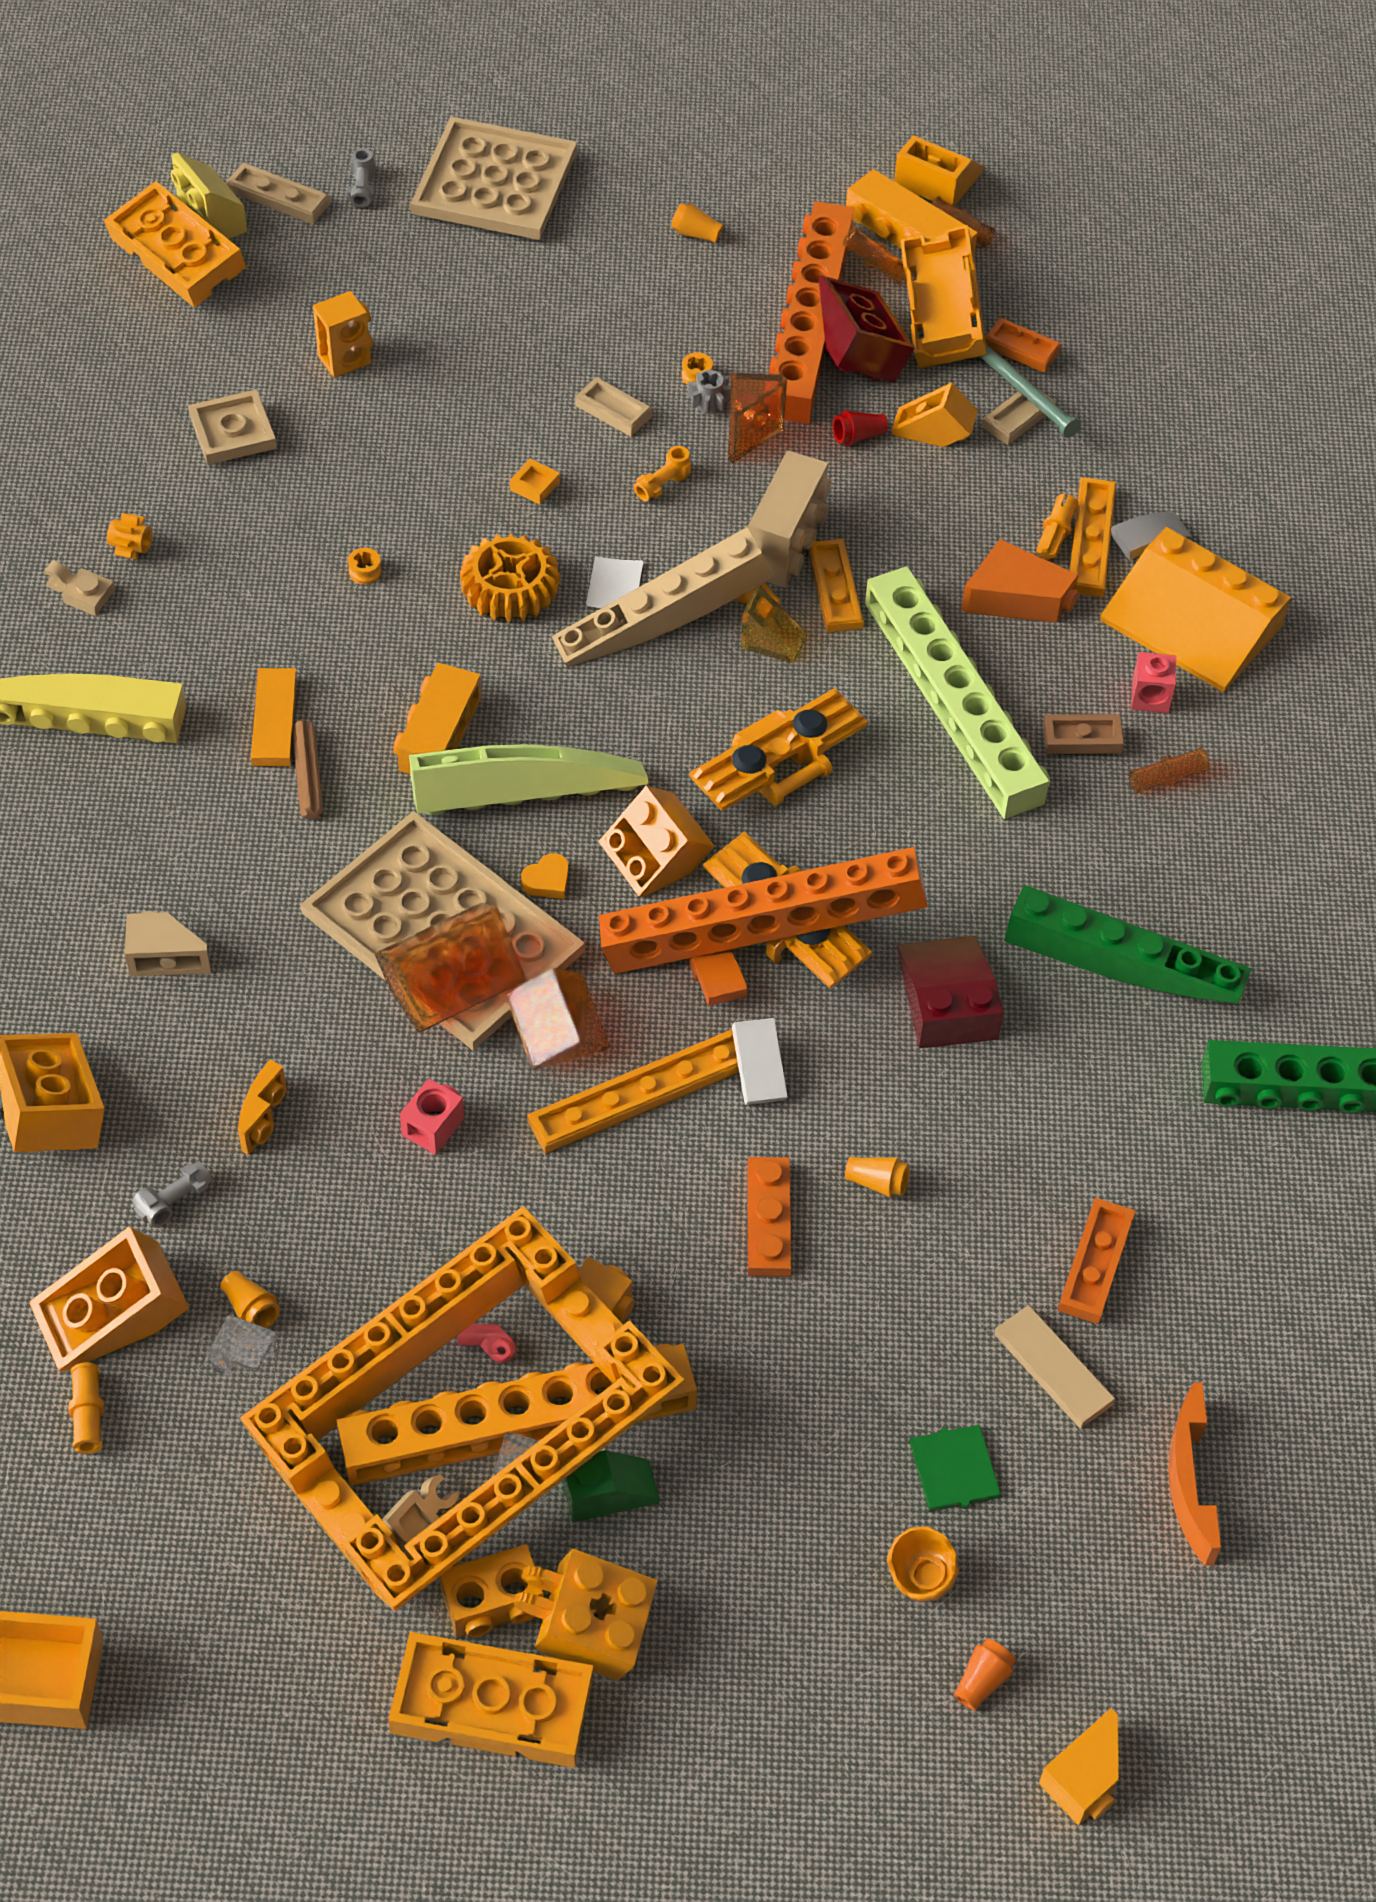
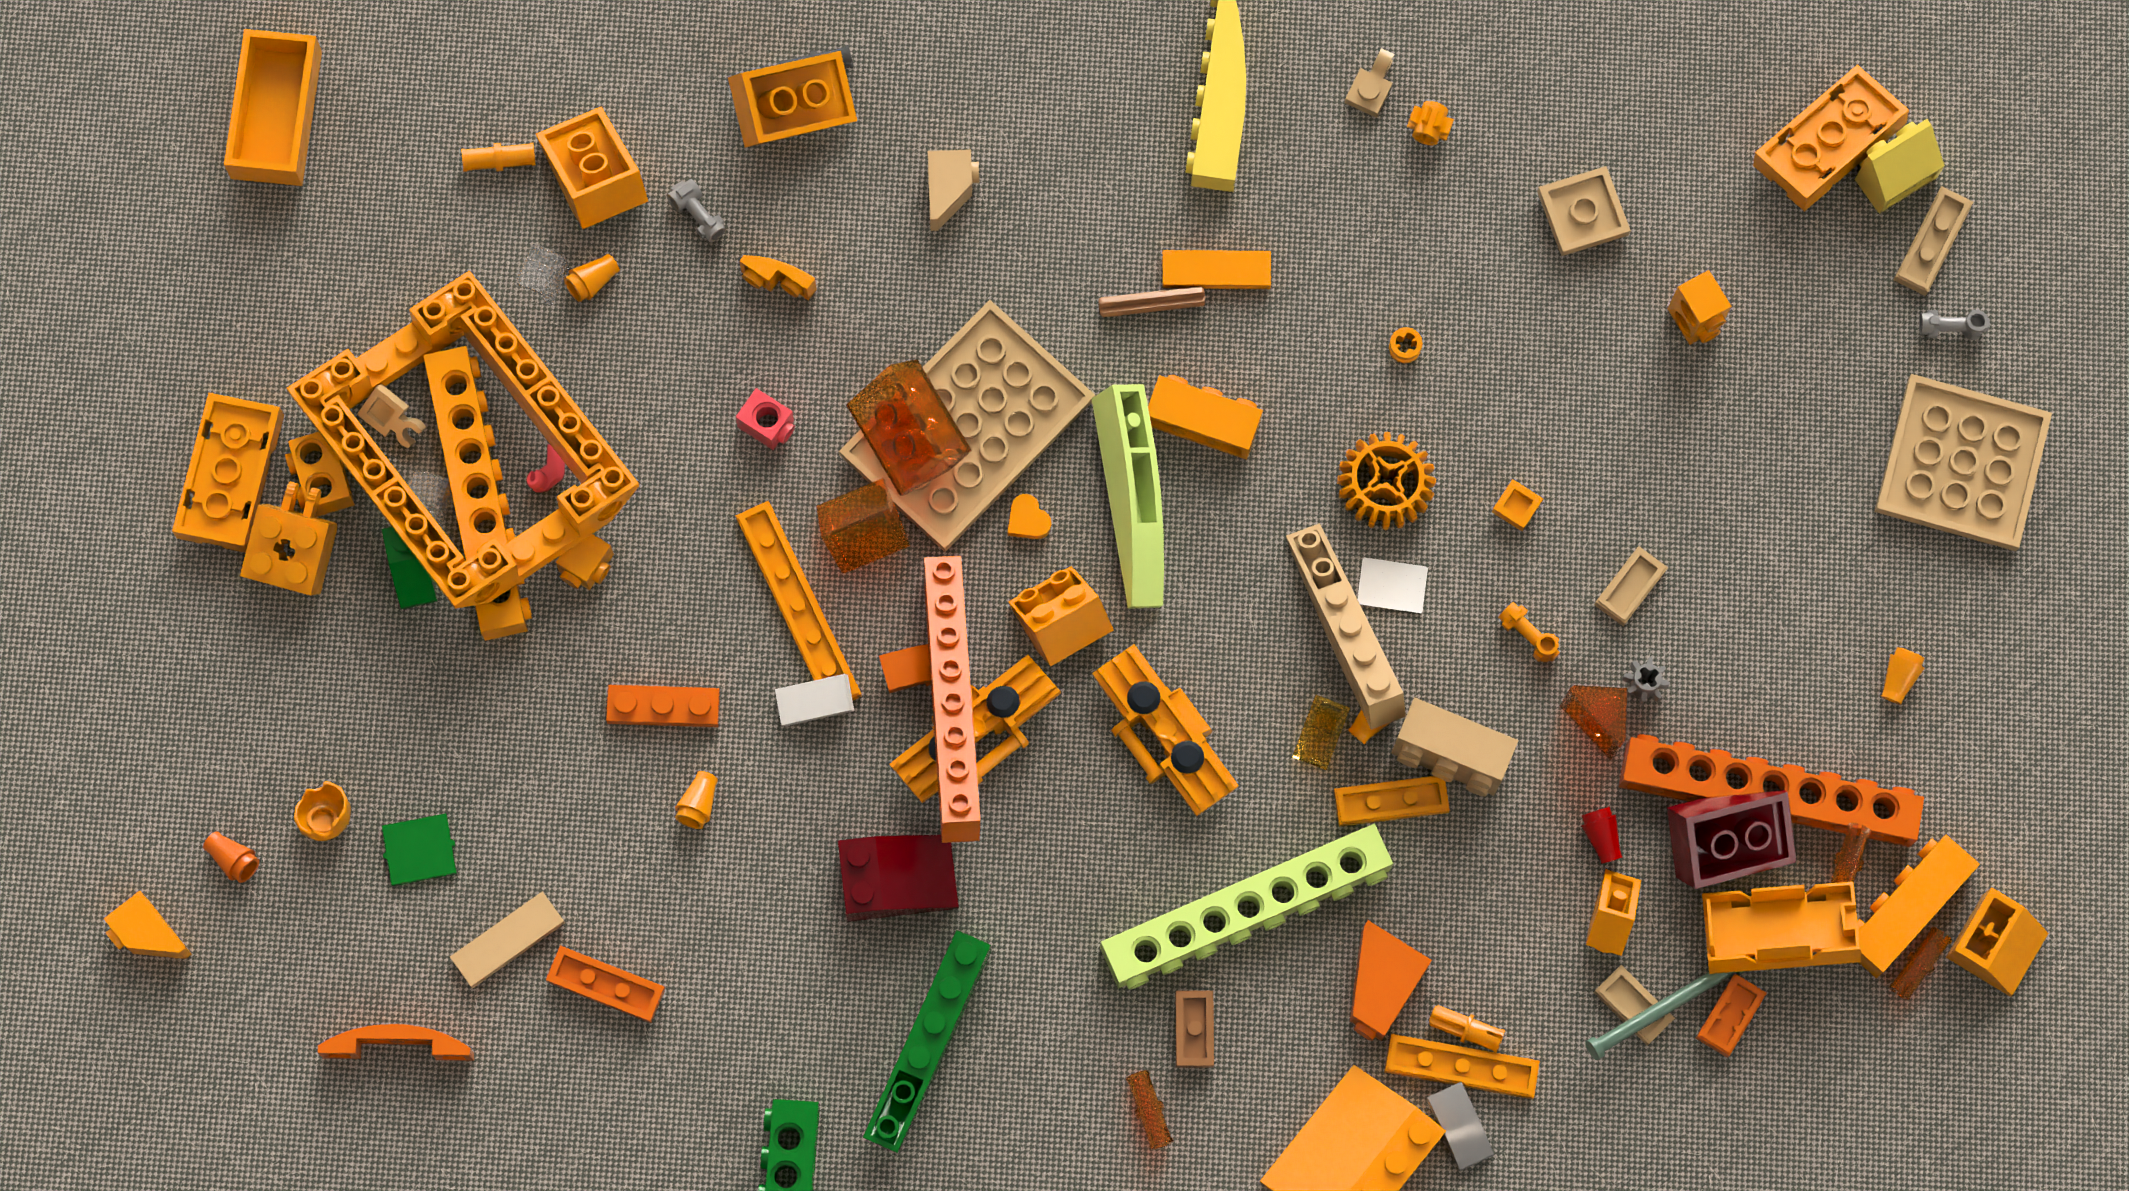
camera: 90 degrees right, 20 degrees up
(693, 364) = (1696, 674): light orange bush -> none
(1153, 682) = (1254, 1103): coral brick -> none

